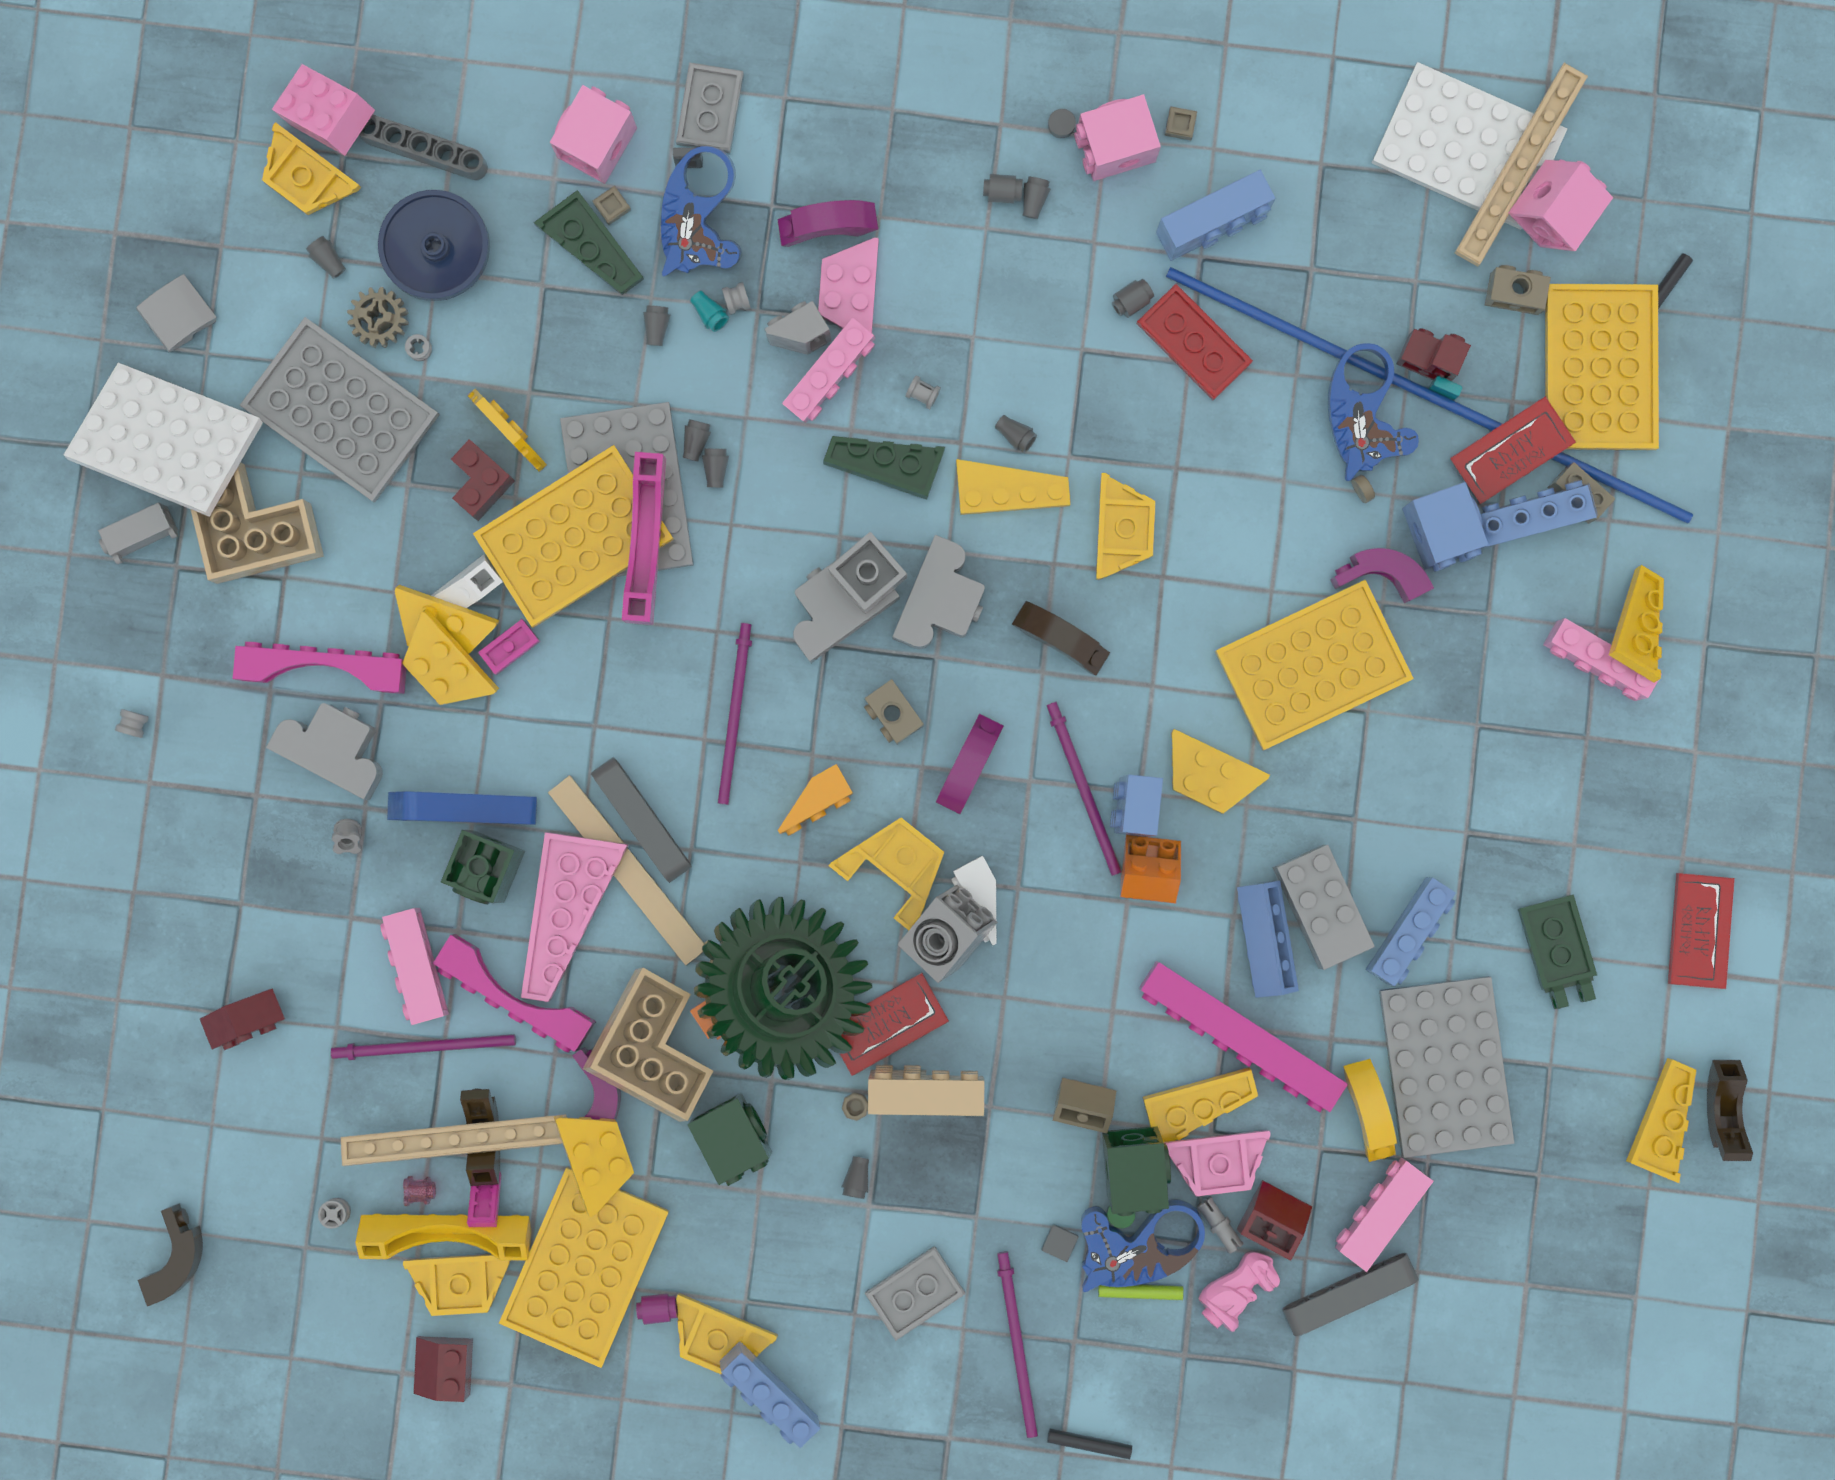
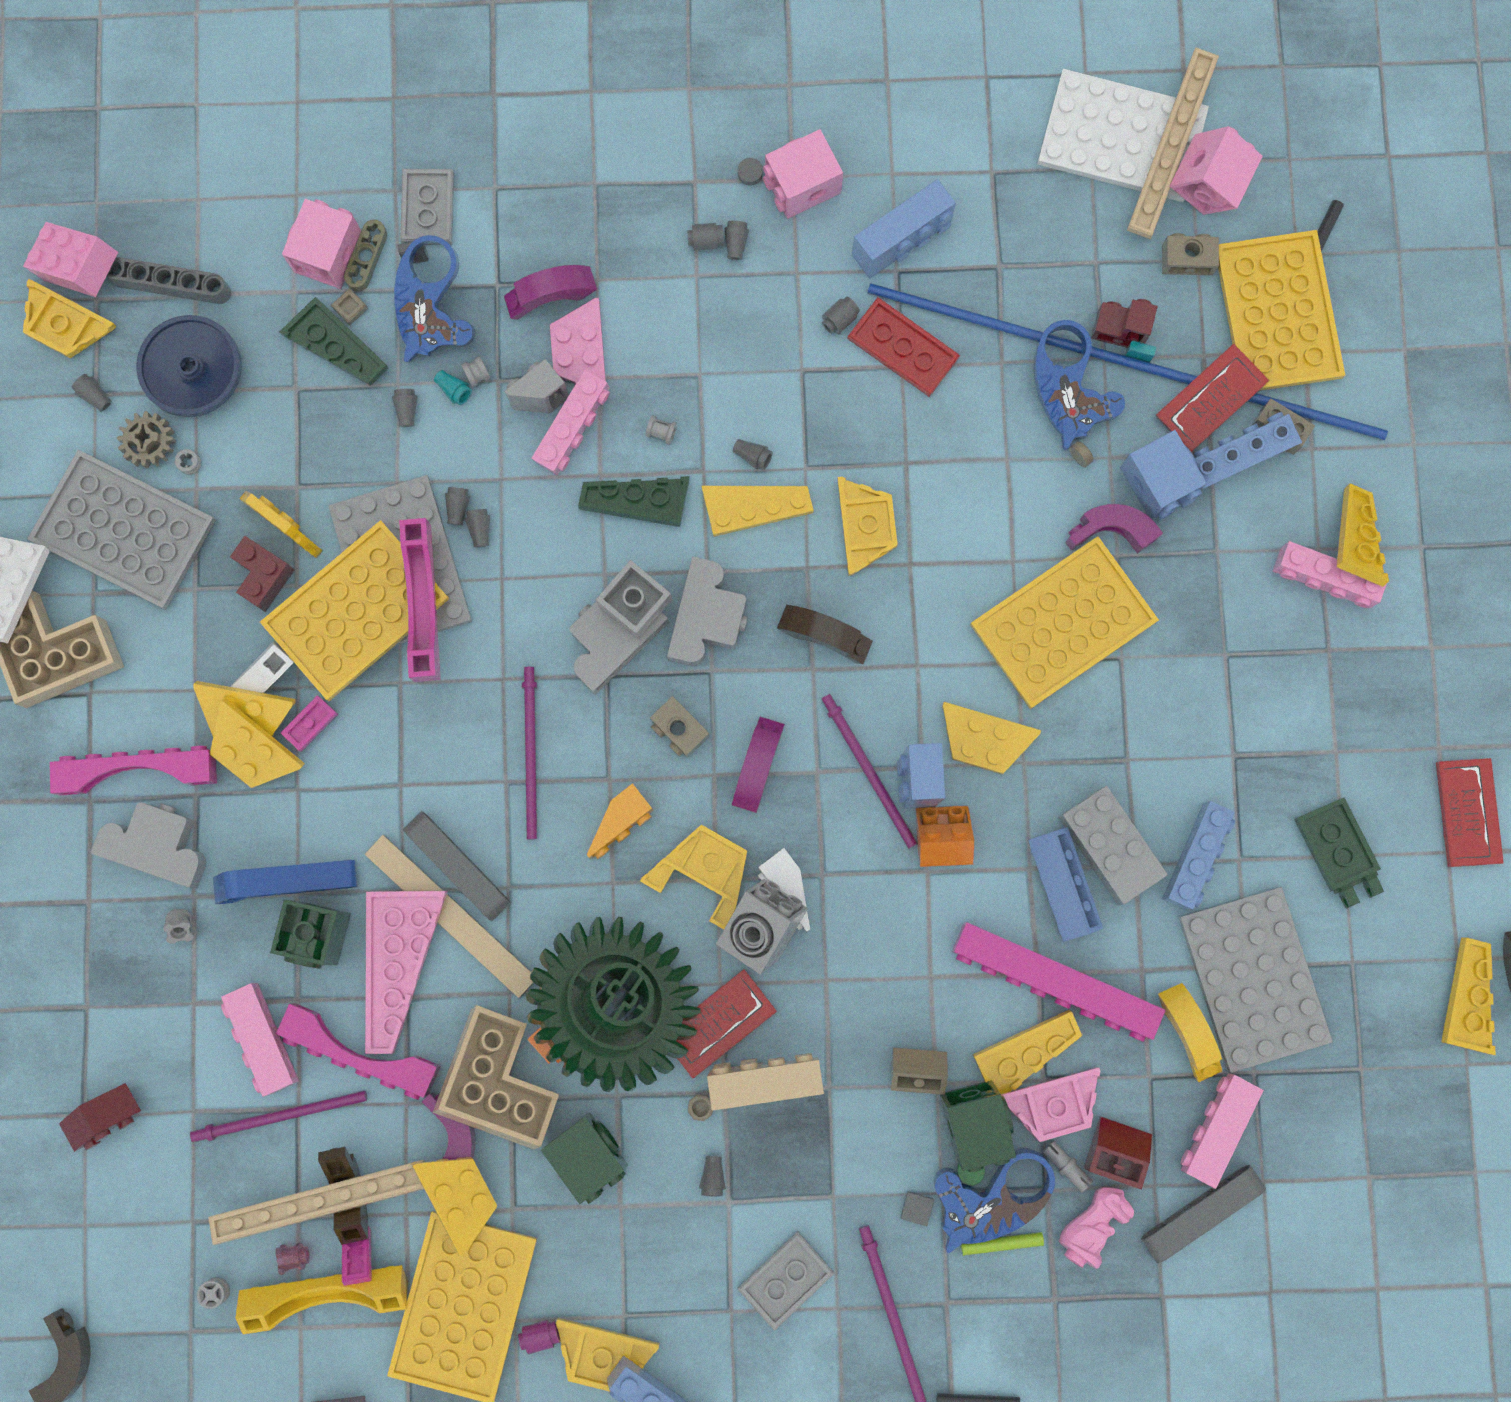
camera: 10 degrees left, 5 degrees down
(457, 1282) = (342, 1342): yellow wing -> none
(621, 166) = (364, 244): none -> olive beam
(1180, 123) = (858, 155): dark tan tile -> none

